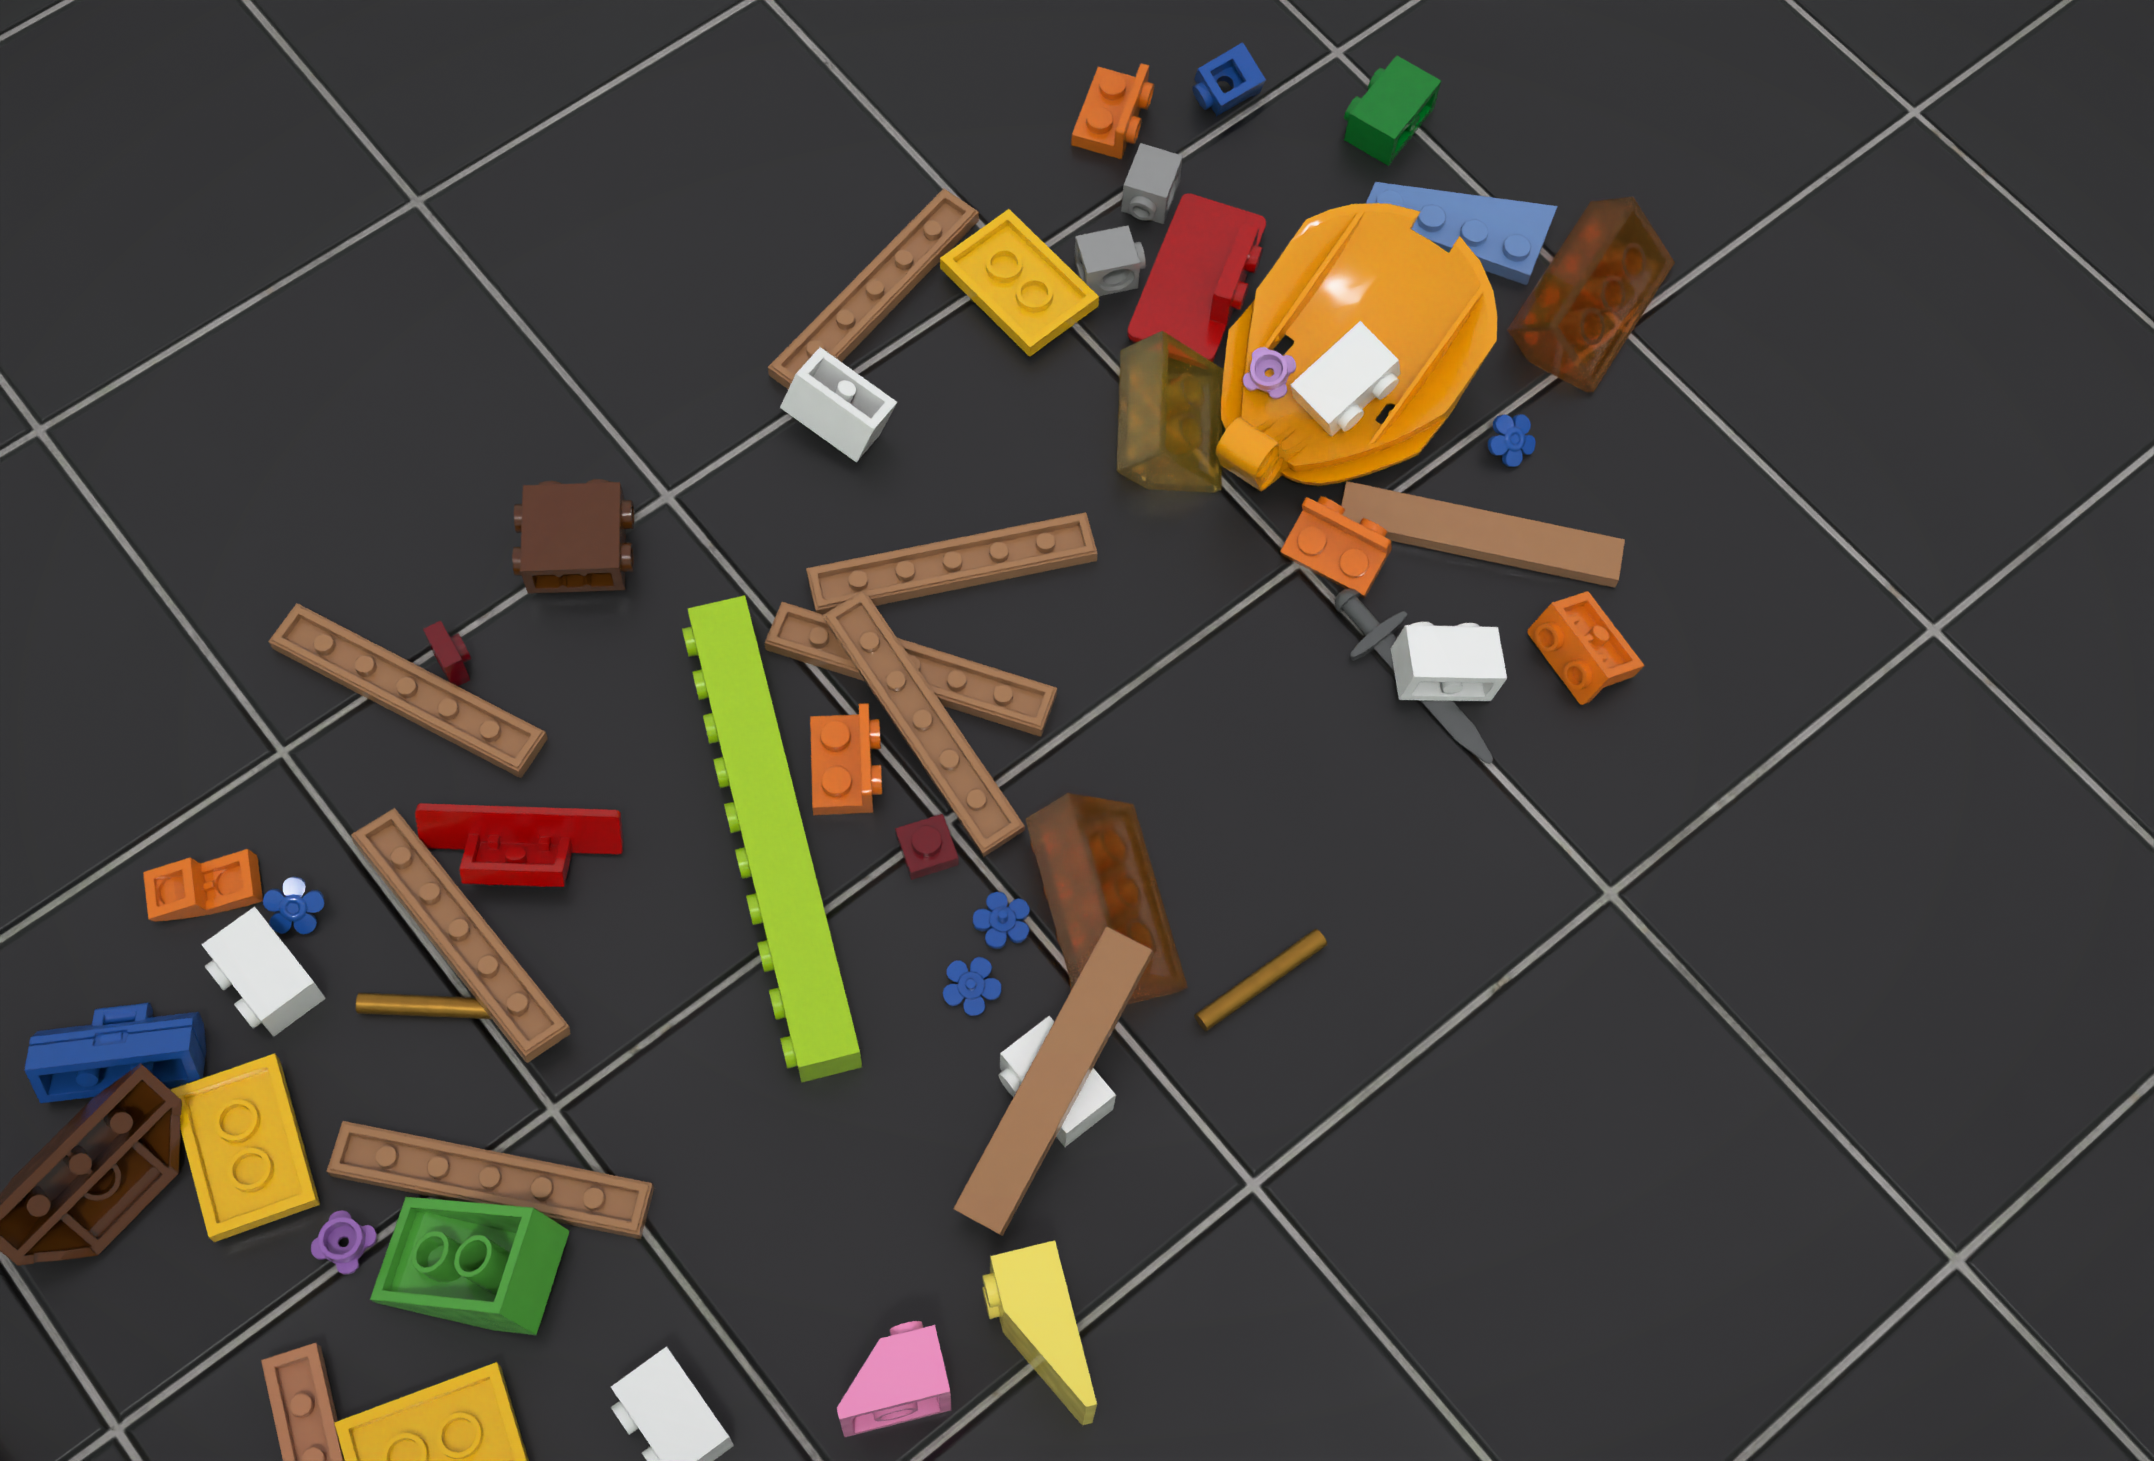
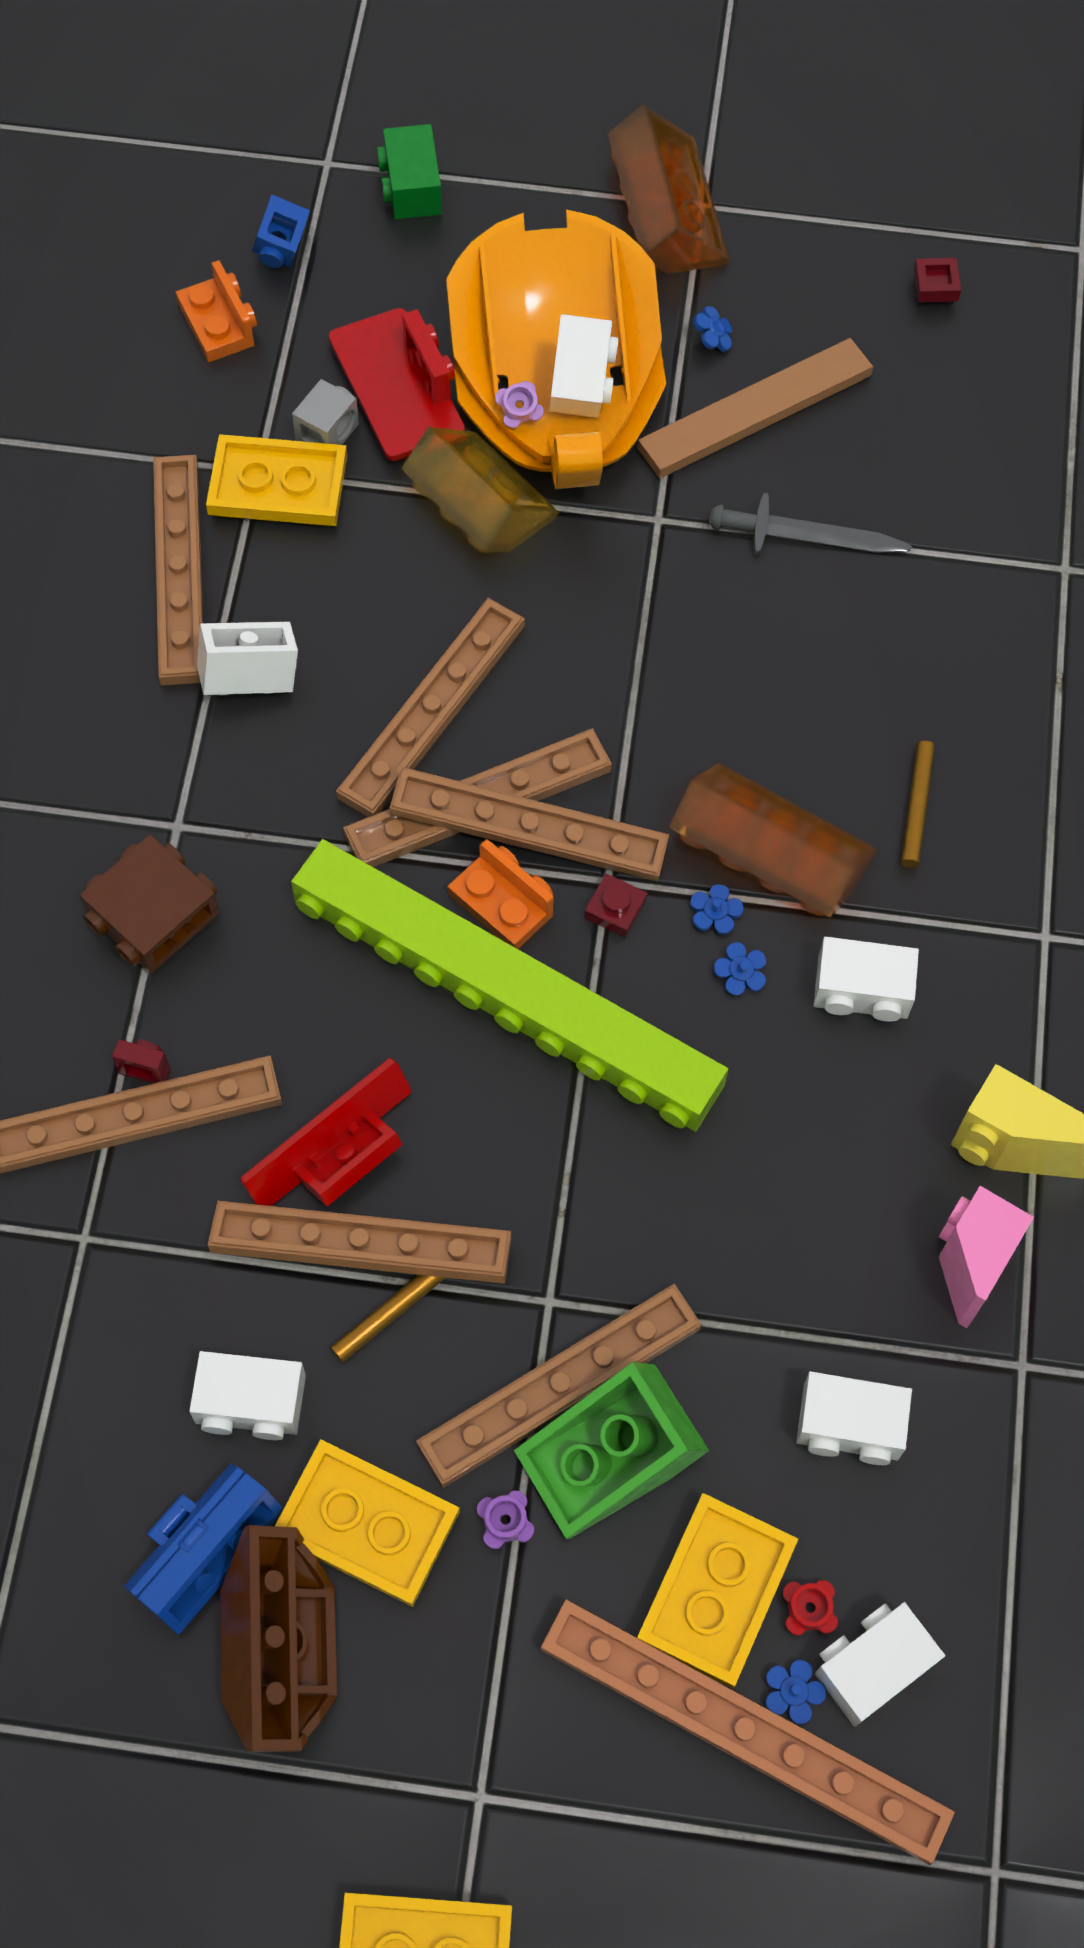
camera: 40 degrees left, 0 degrees up
(202, 889) = (133, 1380): orange slope -> none
(293, 906) = (218, 1330): blue plant -> none
(1054, 1081) = (877, 972): medium nougat tile -> none
(1151, 183) = (300, 342): light grey brick -> none
(1337, 546) = (677, 484): orange bracket -> none
(1448, 662) = (828, 501): white brick -> none
(1498, 231) = (542, 203): medium blue wing -> none
(1583, 646) = (895, 427): orange bracket -> none
(1758, 550) = (937, 280): none -> dark red plate

